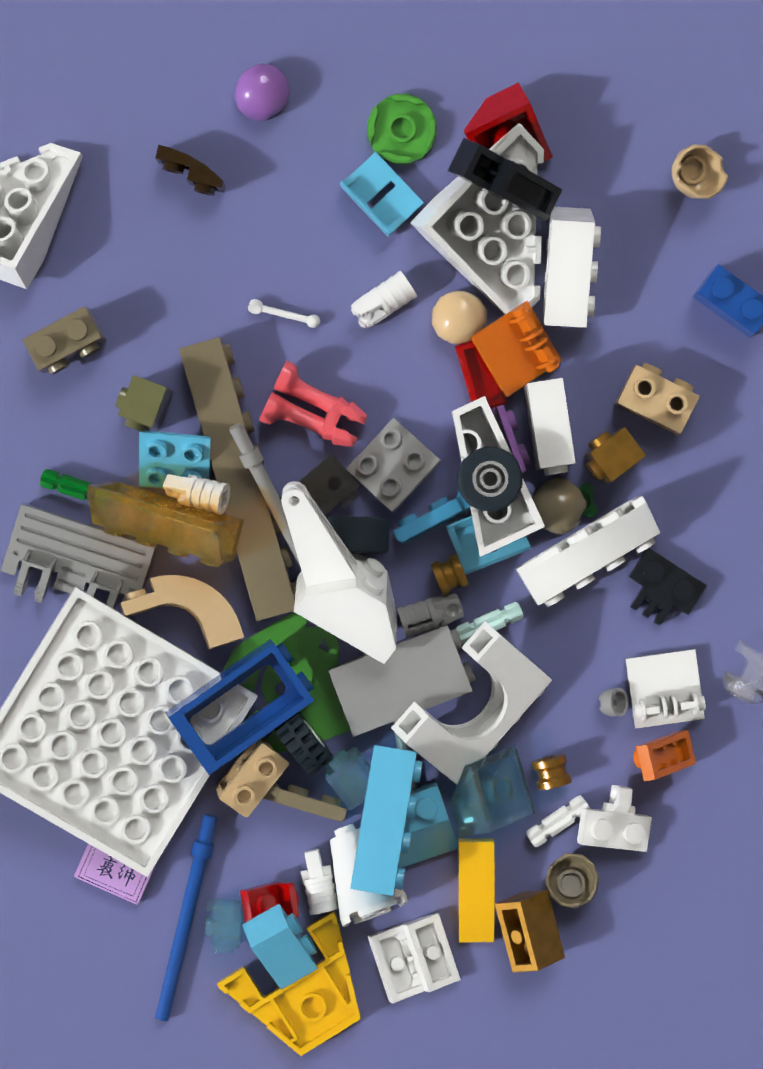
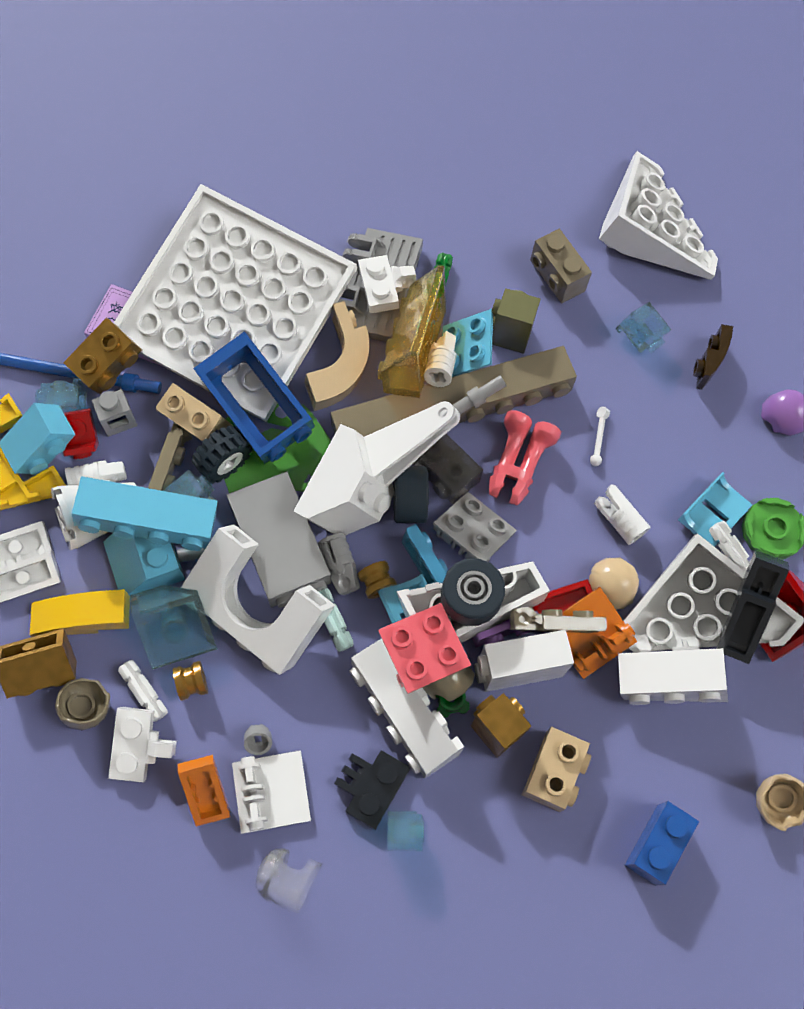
camera: 80 degrees right, 20 degrees down
(87, 555) = (384, 282): none -> white hinge
(152, 247) = (645, 328): none -> clear light blue brick
(182, 877) = (103, 356): none -> pearl gold brick
(242, 864) = (112, 406): none -> light grey brick
(426, 183) = (730, 544): none -> white axle
(514, 390) = (553, 620): none -> hinge
(542, 531) = (424, 648): none -> coral hinge
(711, 556) = (405, 831): none -> clear light blue brick

